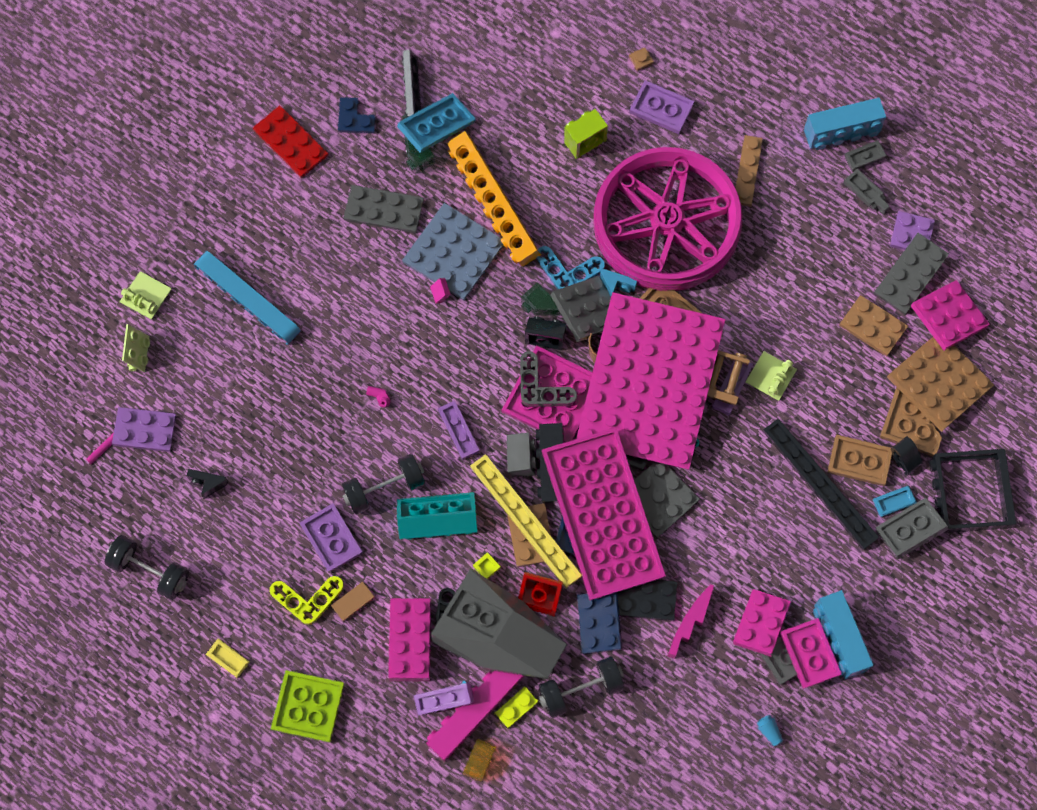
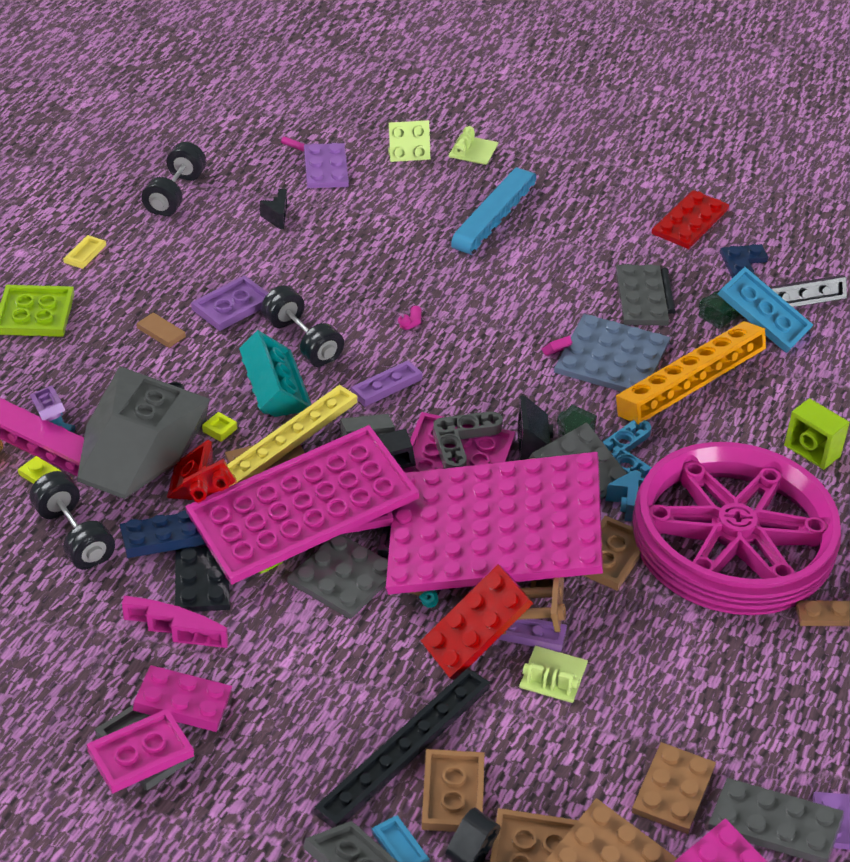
camera: 75 degrees right, 30 degrees down
(303, 605) = (146, 299): neon yellow beam -> none
(382, 187) = (668, 291): none -> black bar
(409, 639) = (94, 369): dark pink brick -> none
(573, 579) = (209, 480): none -> red hips
(737, 414) = (476, 622): none -> red plate
(769, 729) = (30, 726): dark azure cone -> none
(843, 635) = (171, 785): dark azure brick -> none

